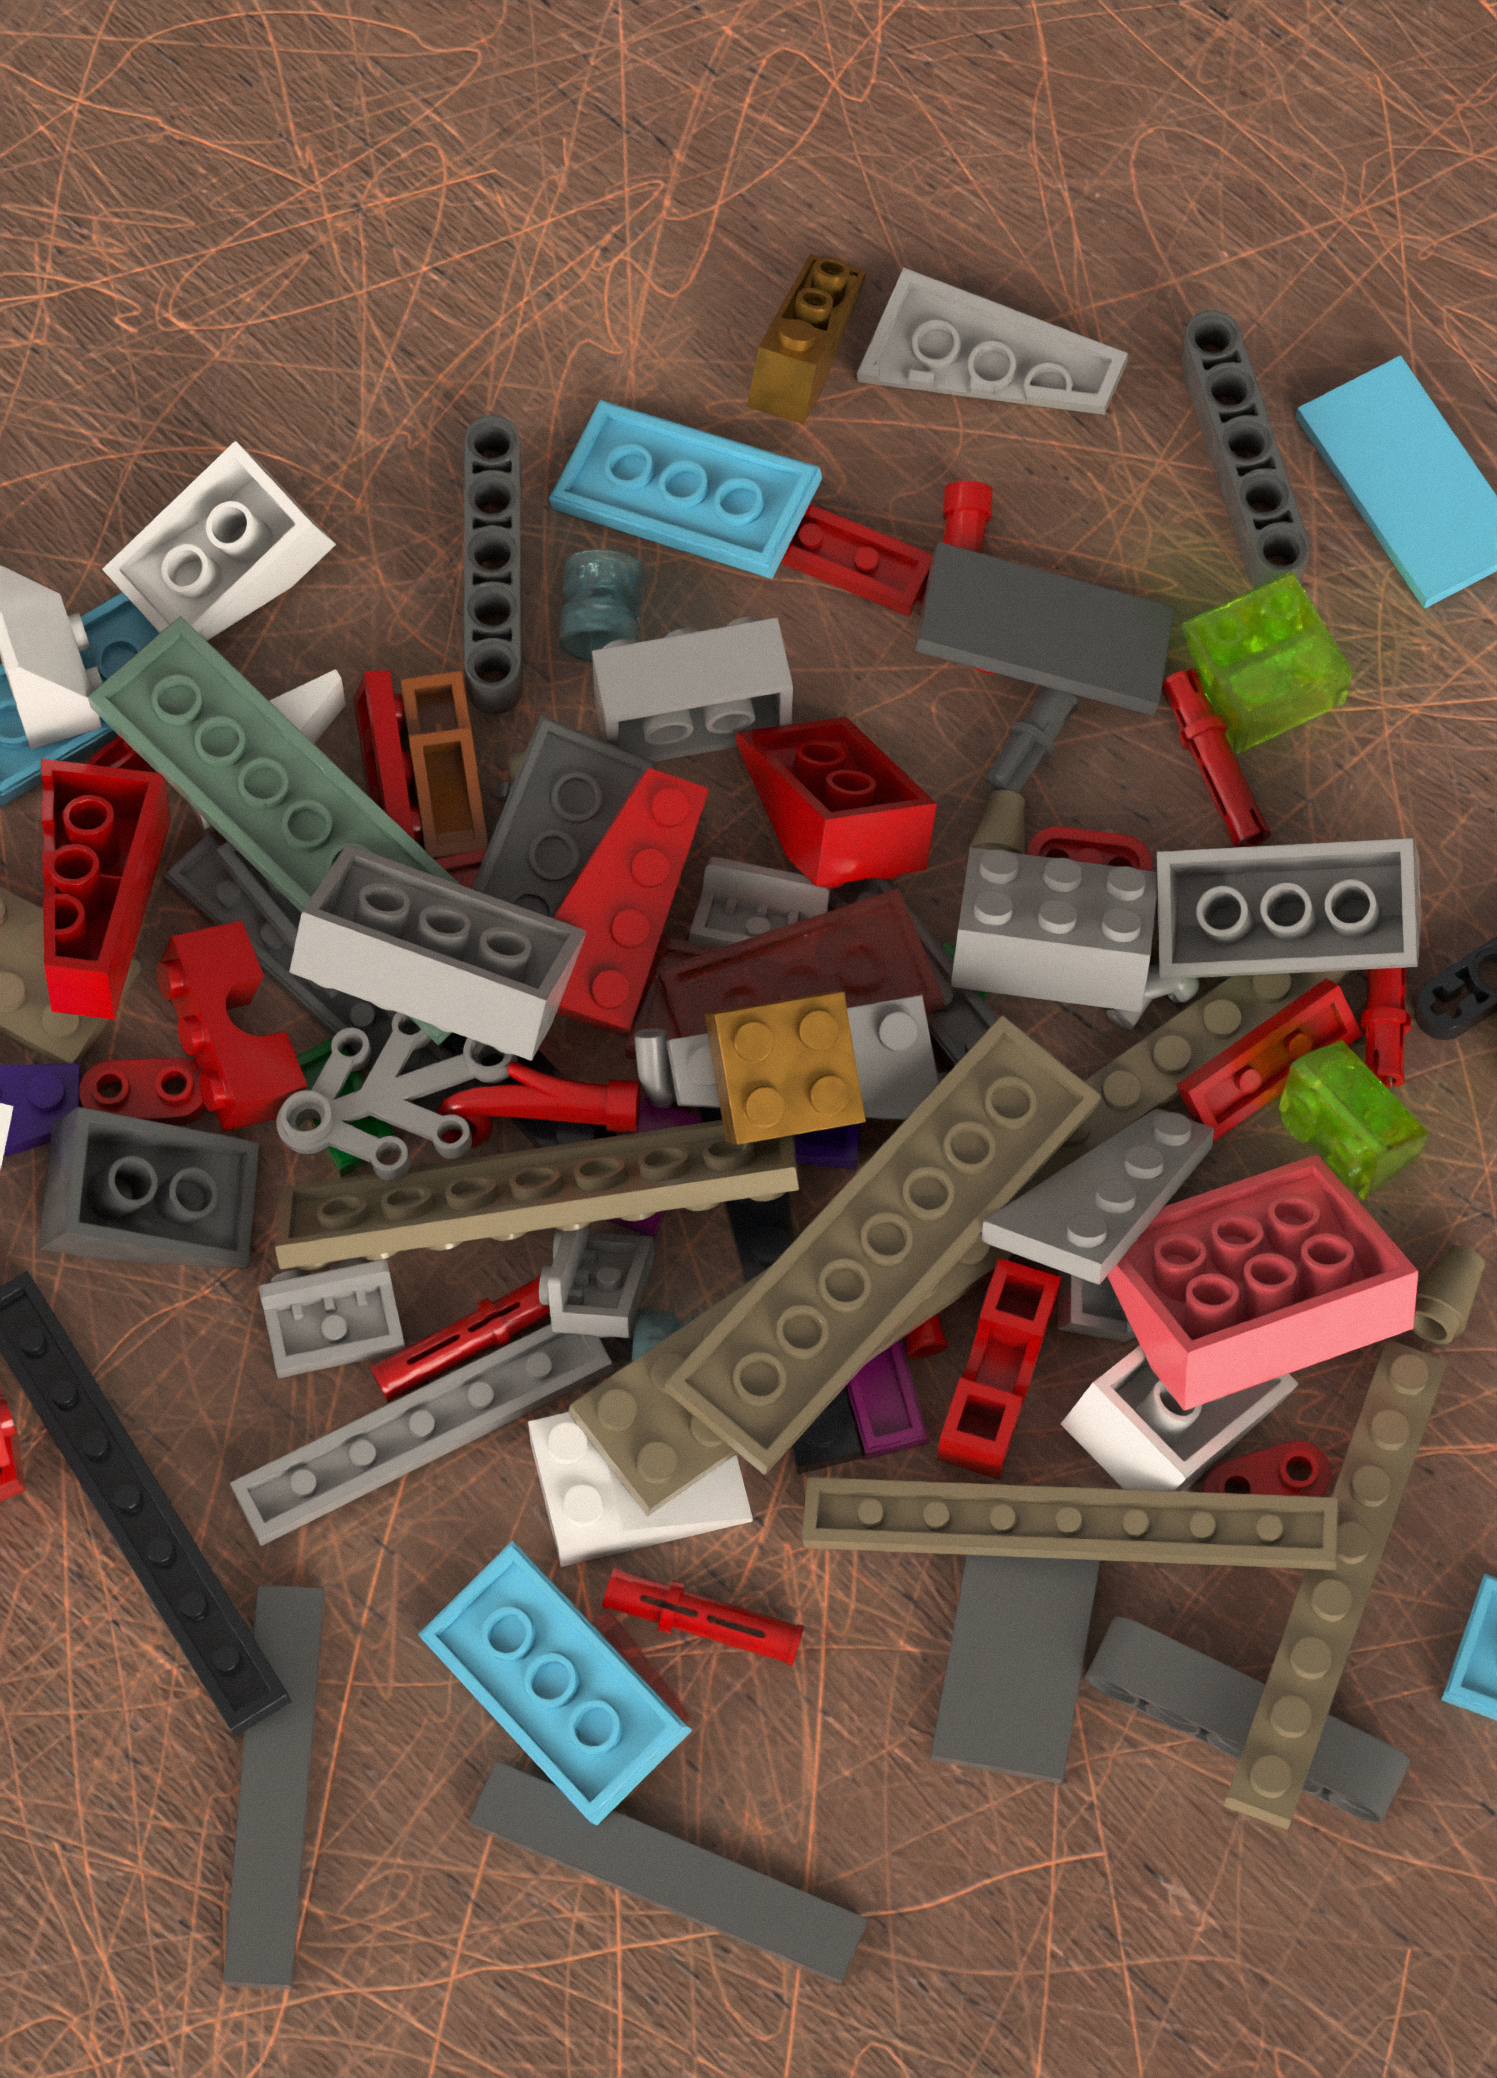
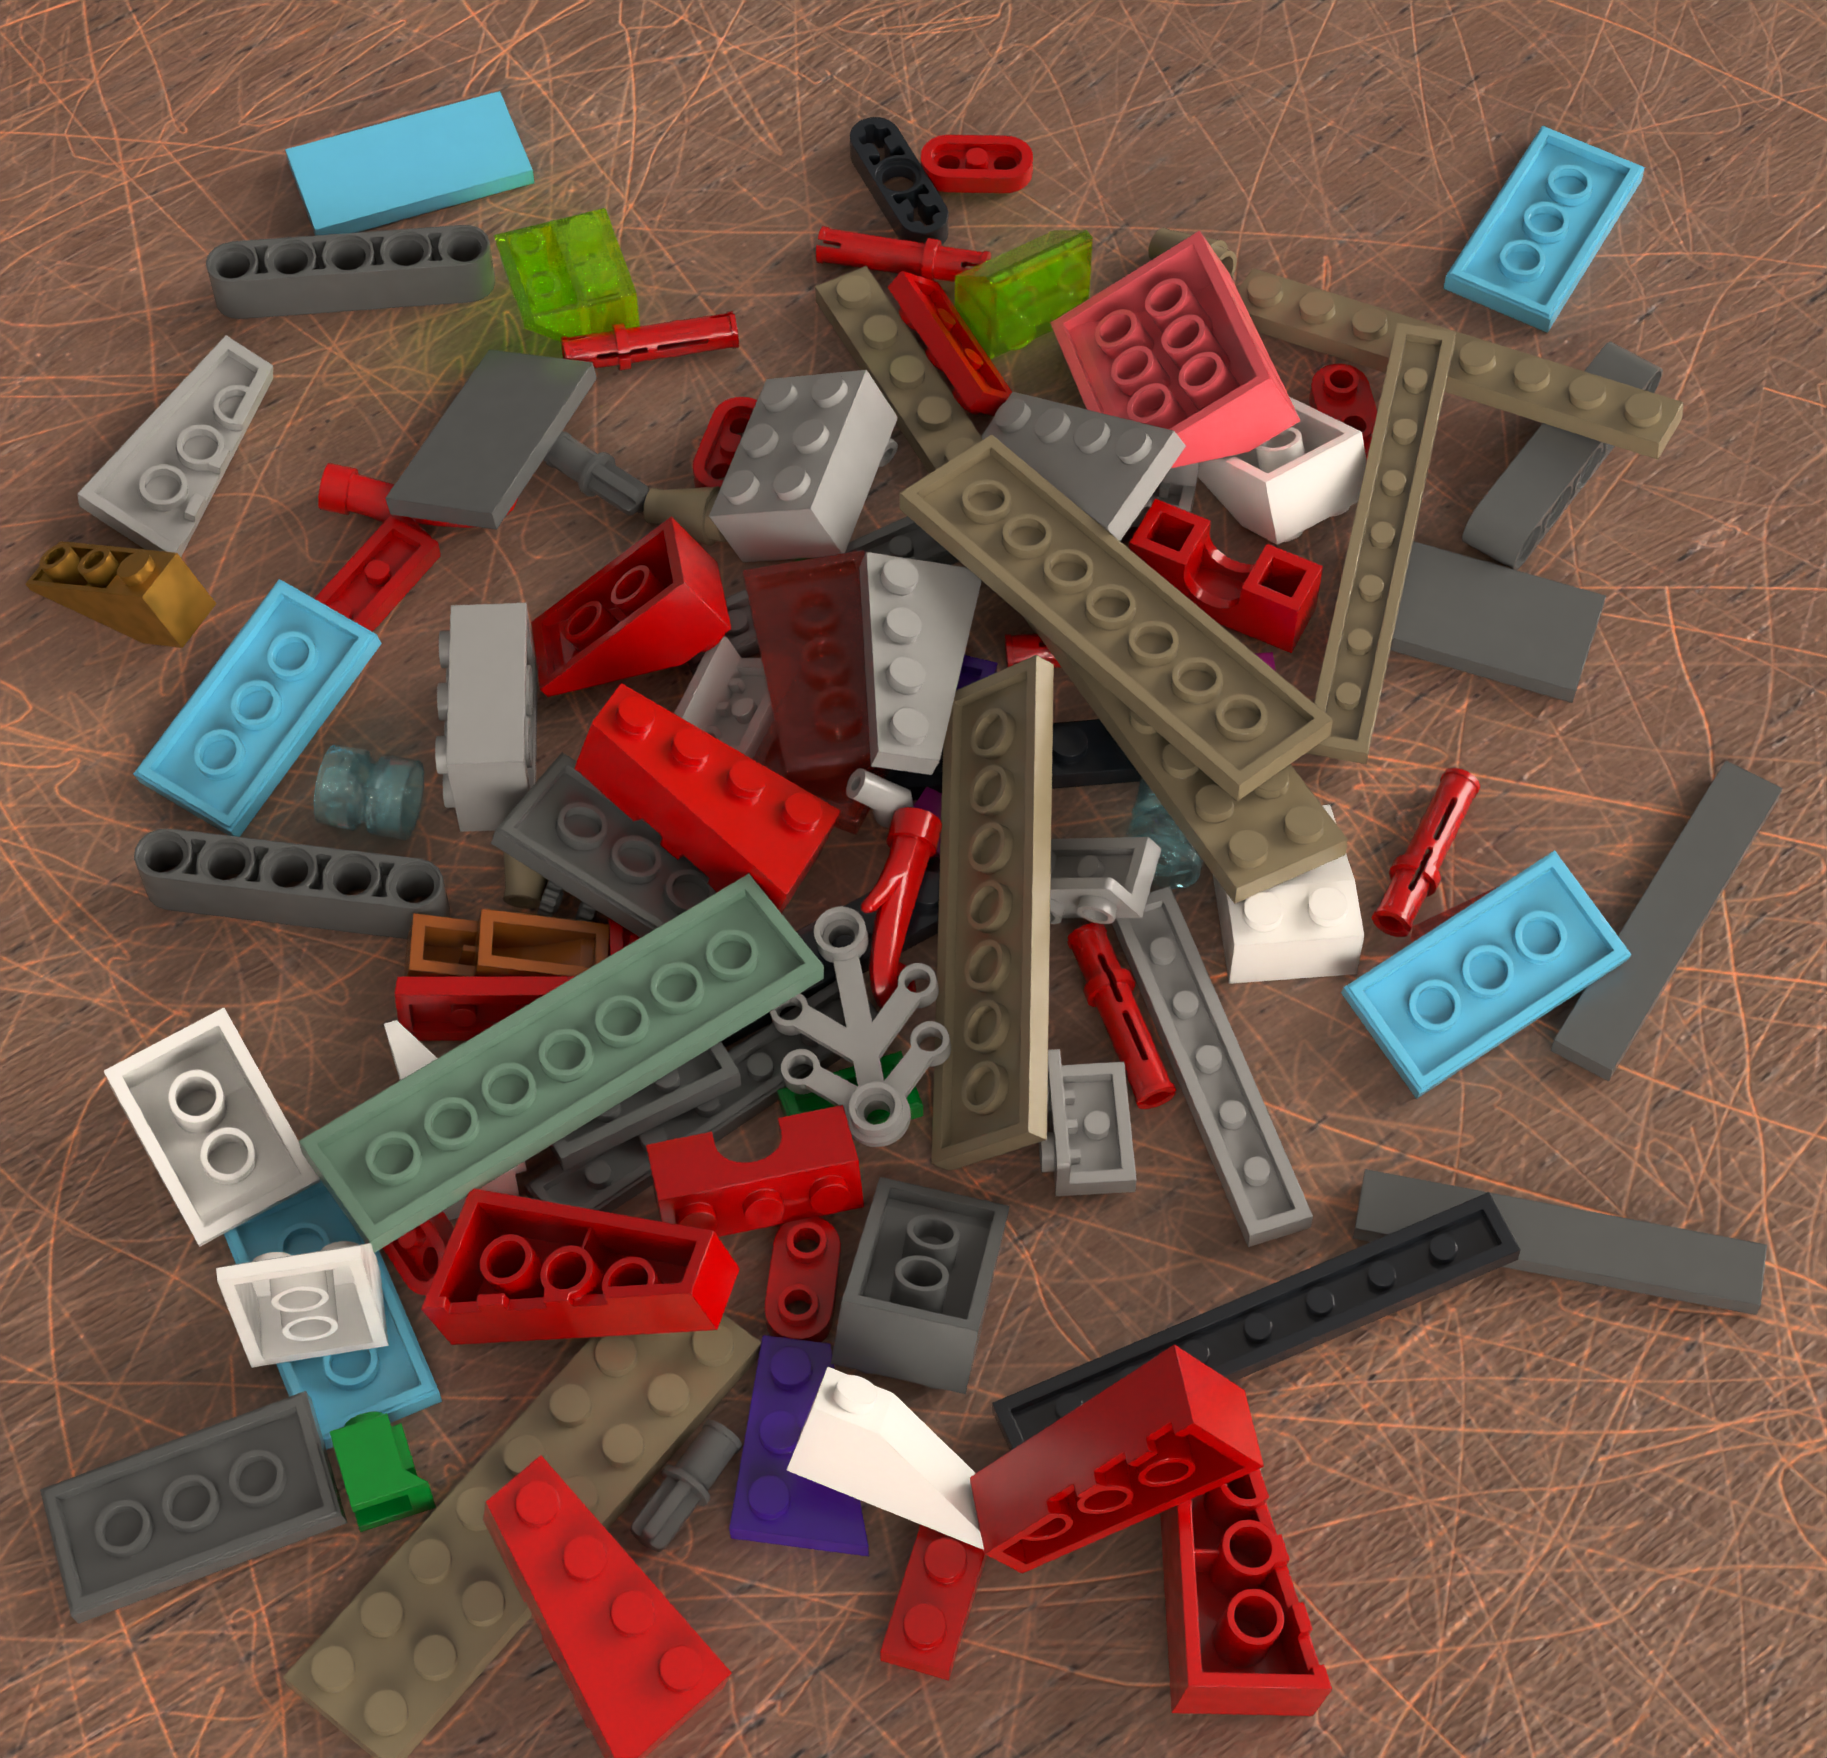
camera: 80 degrees left, 10 degrees down
(436, 951) = (746, 934): light grey slope -> none
(785, 1067) = (935, 647): pearl gold brick -> none
(1289, 908) = (830, 275): light grey slope -> none

